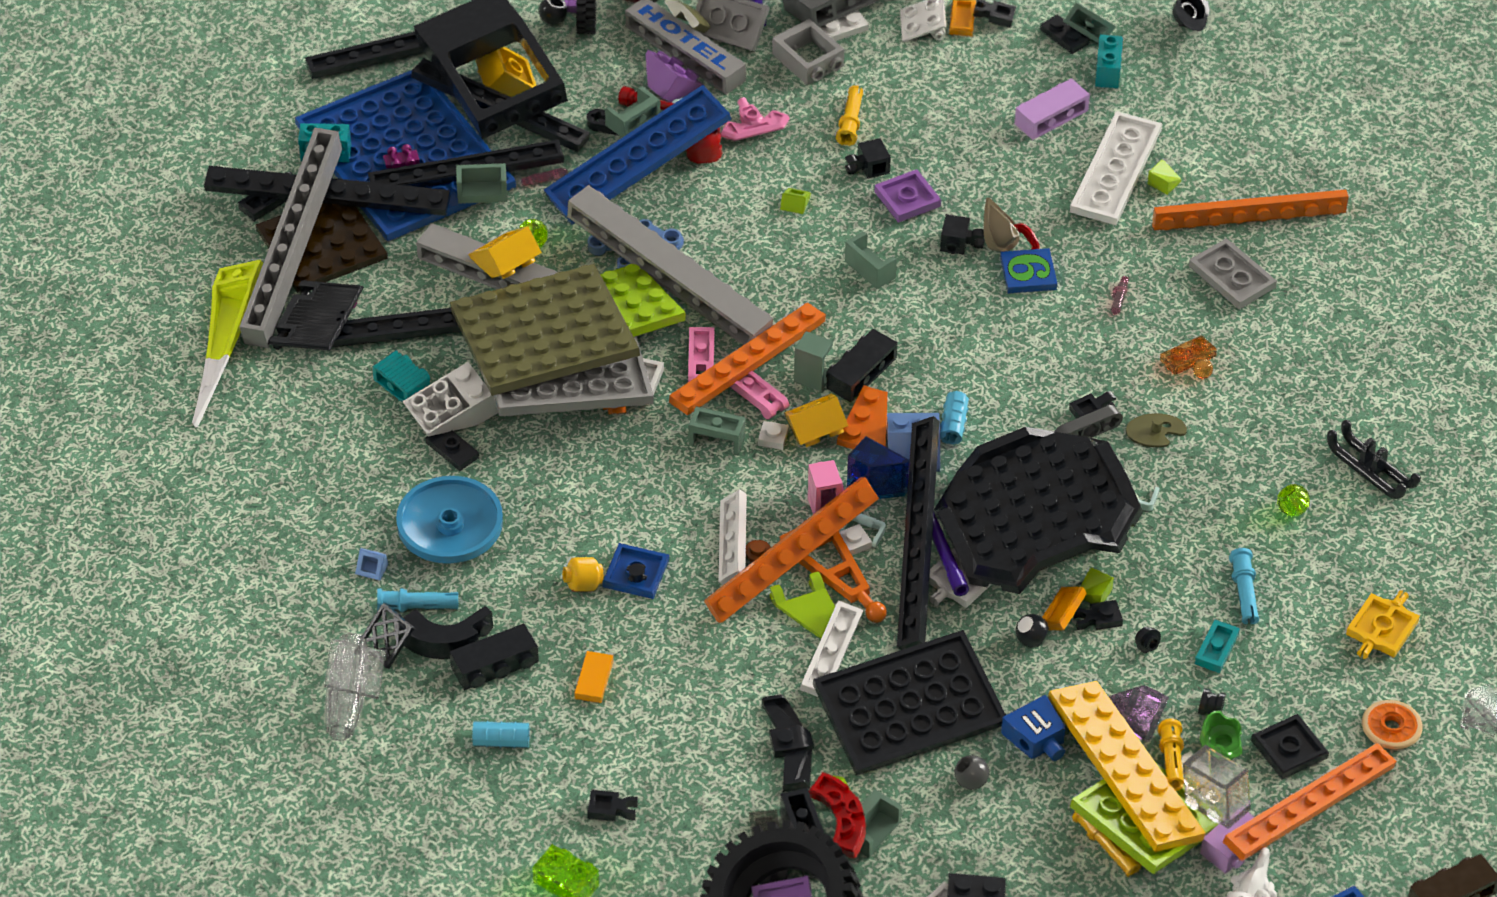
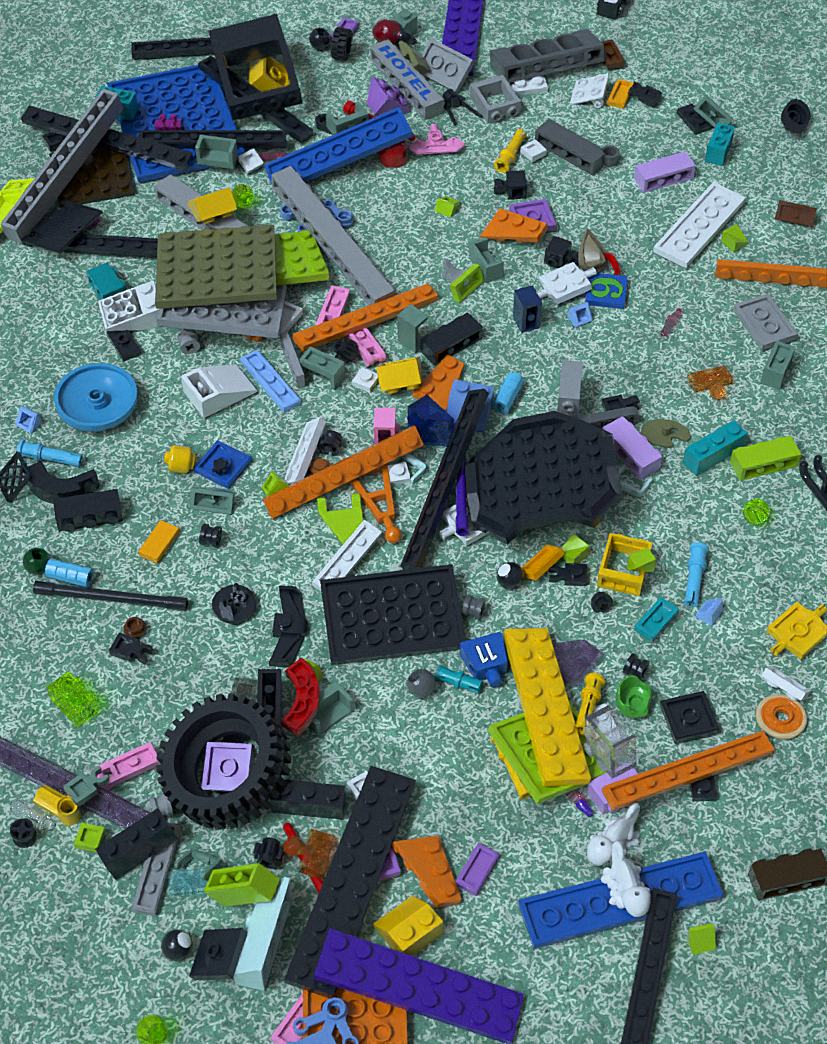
camera: 15 degrees right, 5 degrees up
(456, 728) = (35, 560): none -> dark green piece
(524, 187) = (250, 161): none -> white plate
(536, 430) = (188, 341): none -> light grey wheel
(593, 480) = (216, 387): none -> white slope
(606, 780) = (135, 627): none -> reddish brown plate
(633, 744) = (168, 602): none -> black piece
(640, 615) = (211, 499): none -> sand green slope
(655, 459) = (270, 381): none -> light blue tile
(656, 656) = (210, 535): none -> black wheel
(675, 428) = (292, 360): none -> light grey tile
(710, 581) = (273, 484): none -> lime slope
(712, 739) = (226, 602): none -> black plate
(738, 402) = (346, 350): none -> black gear
(755, 61) = (453, 99): none -> black plant
(760, 519) = (330, 443): none -> black wheel
(850, 291) = (462, 281): none -> lime piece
(879, 110) = (533, 151): none -> white plate
(891, 211) = (514, 226): none -> orange wing
(930, 97) = (575, 148): none -> dark grey hinge
(944, 311) = (527, 309): none -> dark blue brick
(976, 271) = (565, 283): none -> white plate
(1001, 674) = (473, 607): none -> dark grey wheel
(1007, 306) = (580, 314): none -> light blue slope
(1013, 760) = (459, 679): none -> teal pin
(1030, 396) = (570, 387): none -> light grey window
(1138, 460) = (634, 448): none -> lavender brick
(1161, 610) = (618, 580): none -> yellow window
(1184, 581) = (641, 561): none -> lime slope
(1197, 865) = (580, 802): none -> piece
(1222, 435) = (714, 447): none -> teal brick
(1228, 132) = (795, 213): none -> reddish brown plate
(1265, 323) = (777, 364): none -> sand green panel
(1275, 624) = (710, 611): none -> light blue slope
(1284, 436) = (765, 458): none -> lime brick
(1330, 822) = (703, 790): none -> black plate
(1375, 684) = (778, 679): none -> white plate

